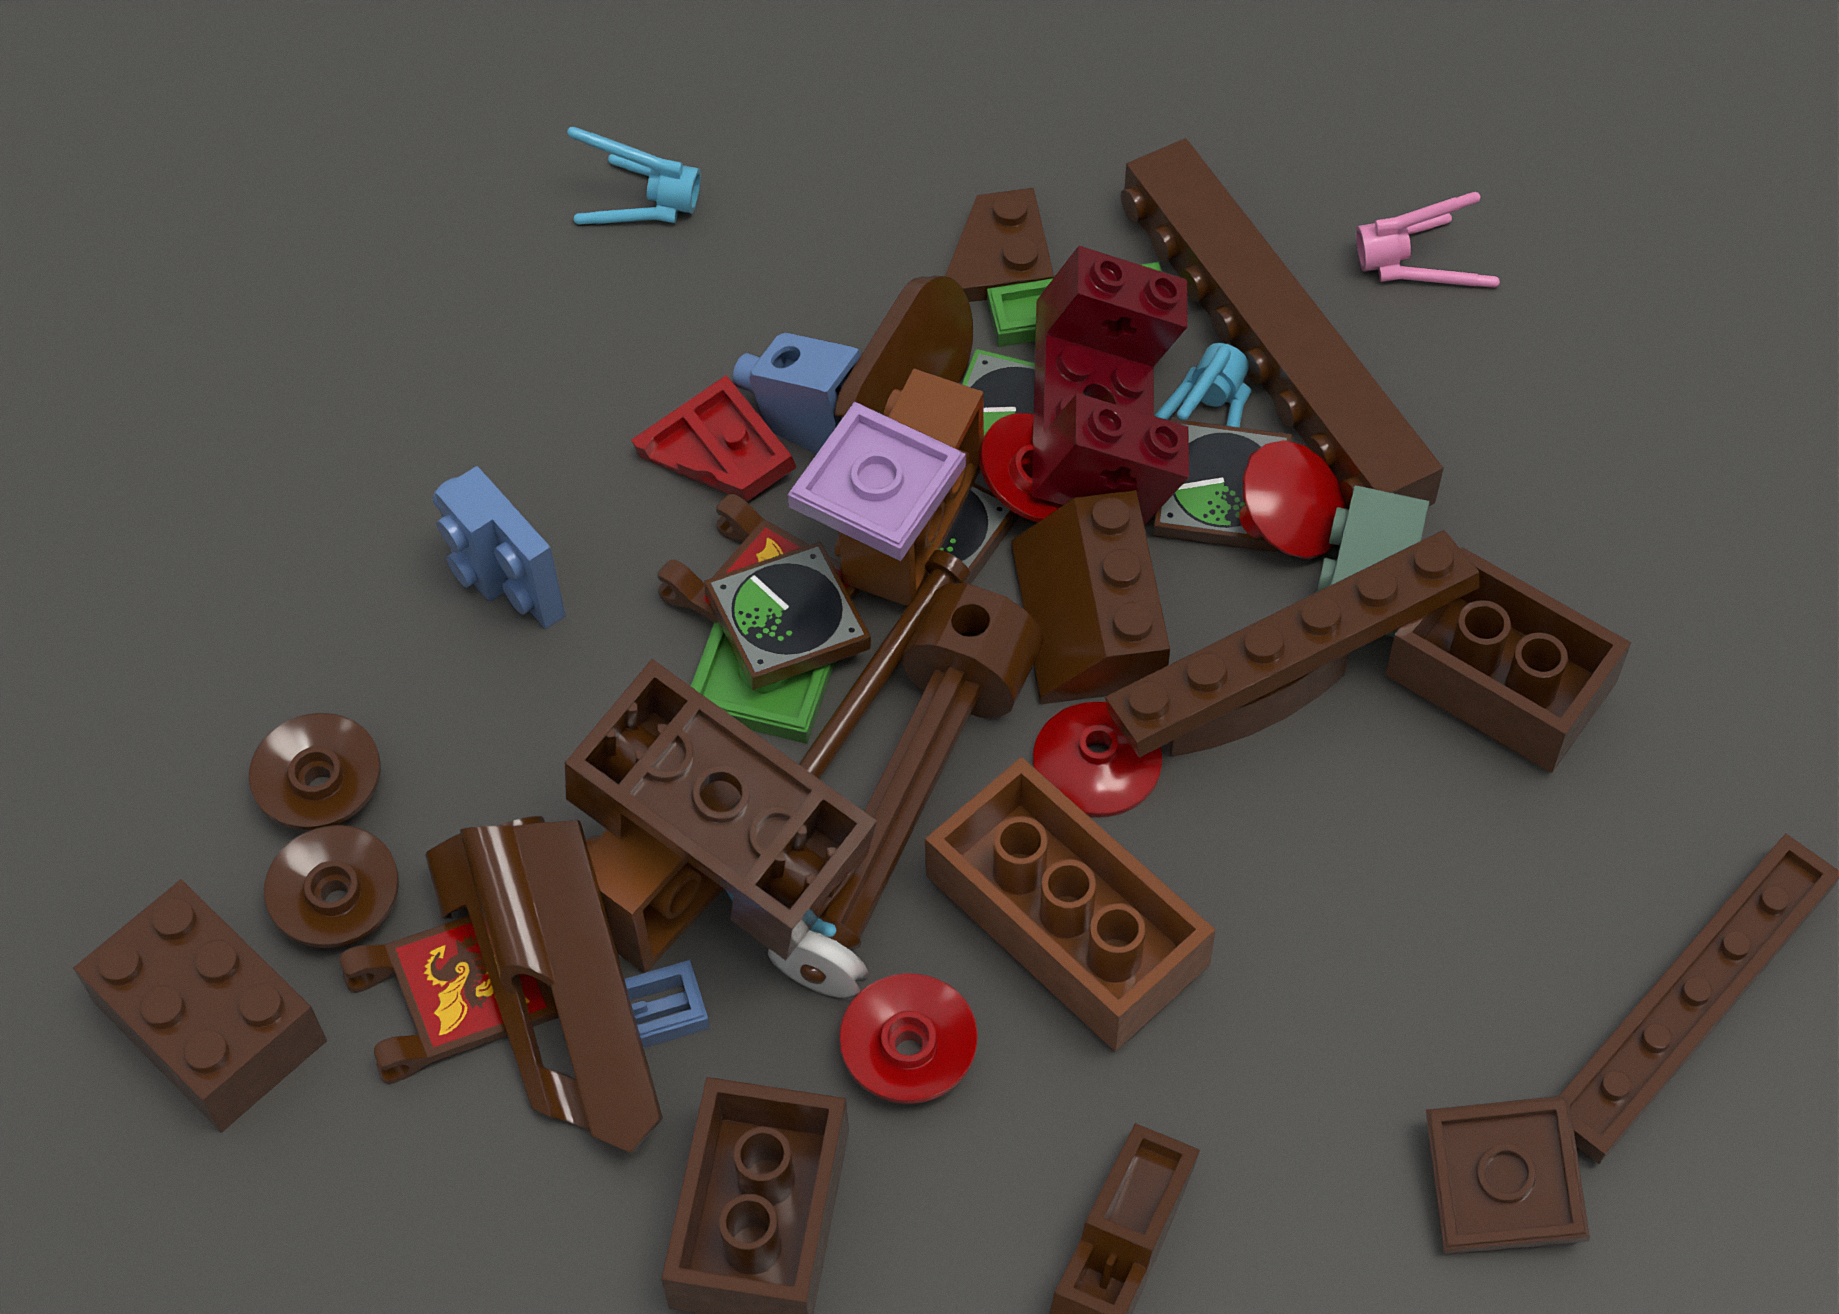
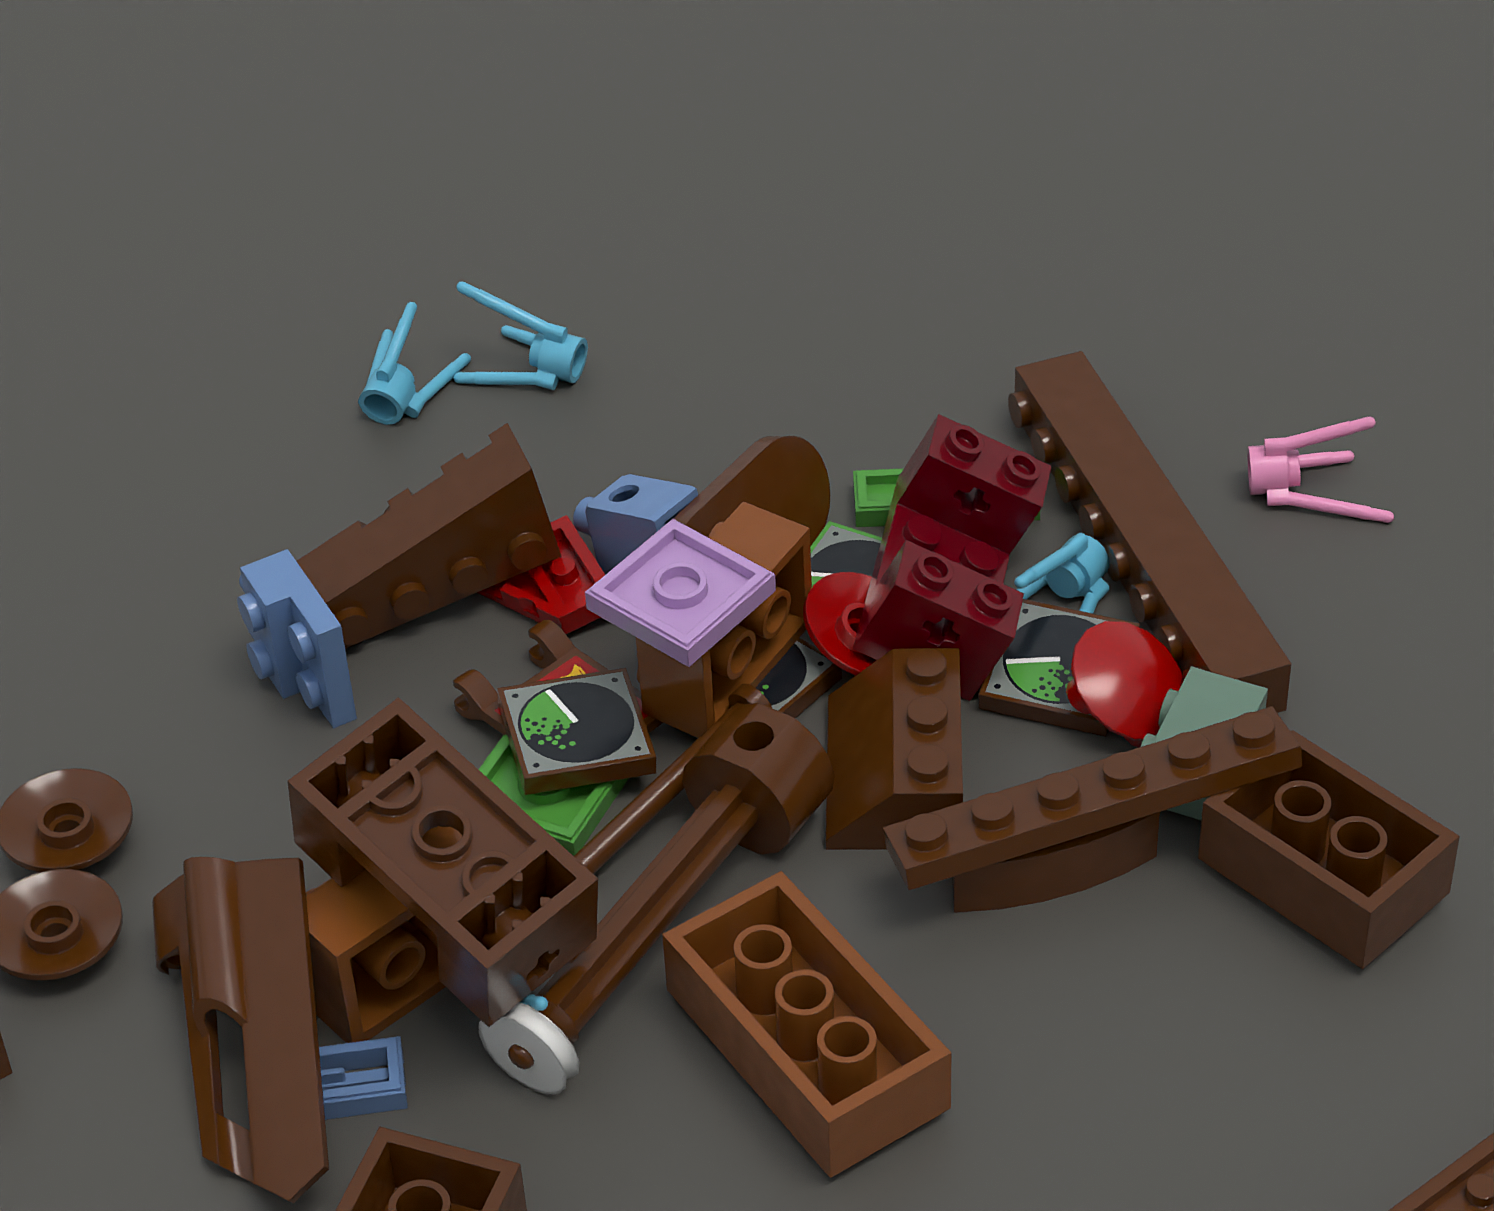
camera: 10 degrees right, 15 degrees down
(444, 992) = (140, 1041): flag -> none
(516, 246) = (391, 385): none -> medium azure plant
(611, 430) = (437, 544): none -> reddish brown wedge
(903, 1010) = (605, 1111): red dish -> none
(1001, 244) = (873, 433): reddish brown wing -> none
(1095, 782) = (873, 906): red dish -> none

